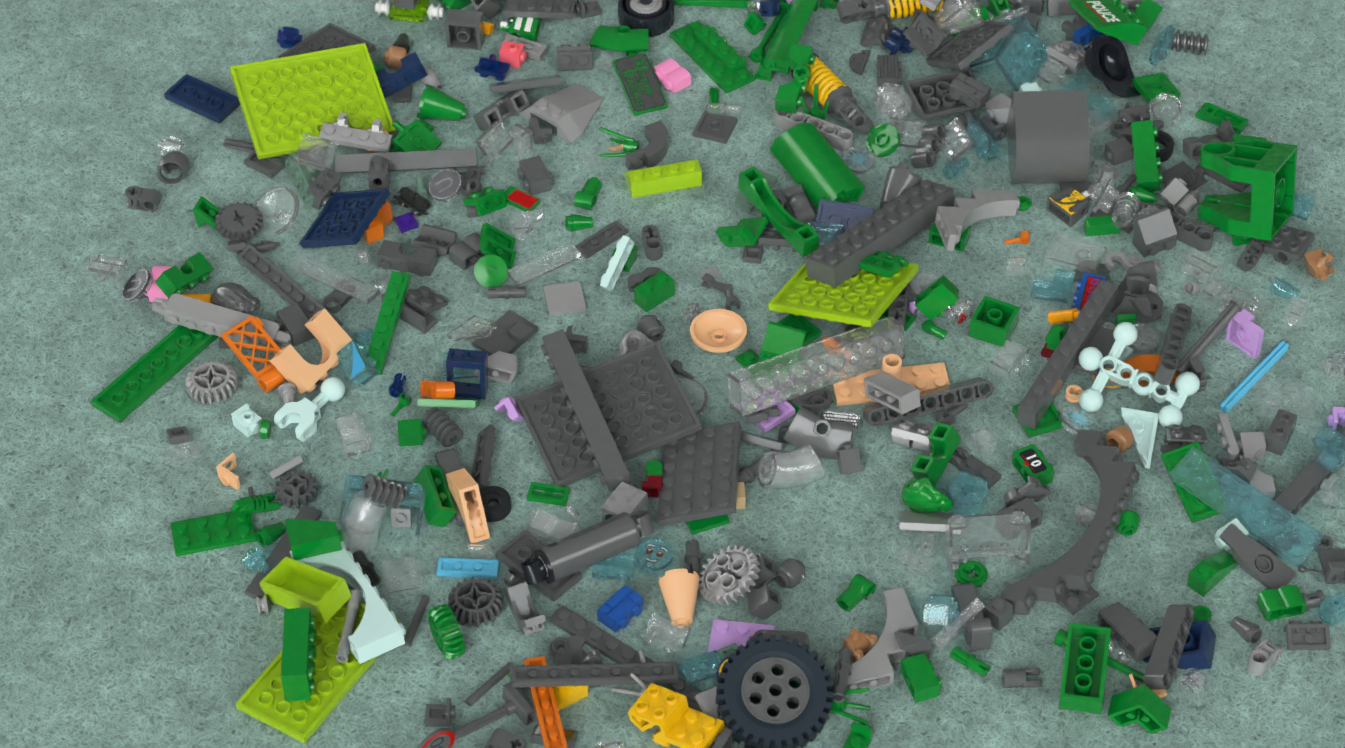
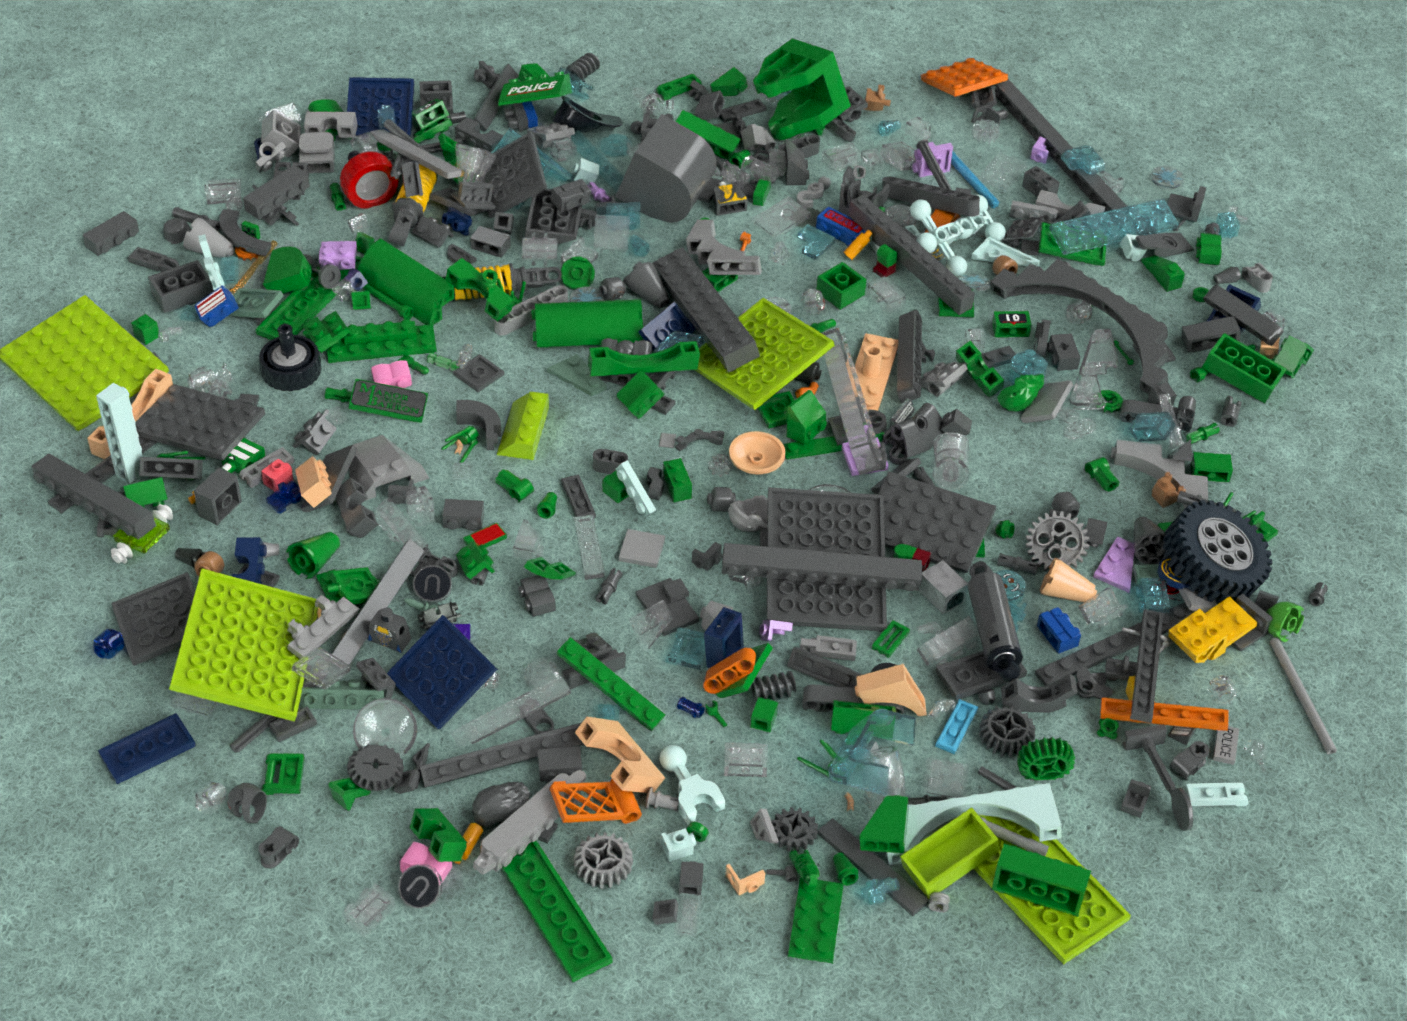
camera: 70 degrees left, 0 degrees up
(214, 178) = (290, 773): none -> green plate
(216, 439) = (691, 878): none -> dark grey brick
(357, 363) = (652, 725): clear light blue brick -> none
(384, 491) = (880, 737): dark grey piece -> none
(419, 263) = (509, 657): dark grey arch -> none
(435, 238) = (506, 616): dark grey bracket -> none
(488, 685) = (1107, 754): dark grey bar -> none
(490, 271) = (580, 586): green piece -> none
(509, 73) = (313, 481): none -> light nougat brick
(513, 455) = (830, 647): none -> light grey hinge
(620, 38) = (316, 391): green panel -> none
(695, 15) = (327, 331): none -> green plate
(700, 82) = (414, 365): none -> green piece
(732, 537) = (1005, 529): none -> green plate
(877, 168) = (612, 288): none -> dark grey head
(883, 263) = (755, 315): green plate -> none
(892, 392) = (905, 365): light grey brick -> none
(914, 68) = (503, 222): none -> dark grey brick
(928, 146) = (607, 248): dark grey piece -> none
(937, 298) = (805, 302): green brick -> none
(998, 108) = (602, 186): light grey slope -> none
(1009, 14) = (489, 139): clear plate -> none
(1154, 84) = (622, 105): green plate -> none
(1307, 636) = (1246, 248): dark grey bracket -> none

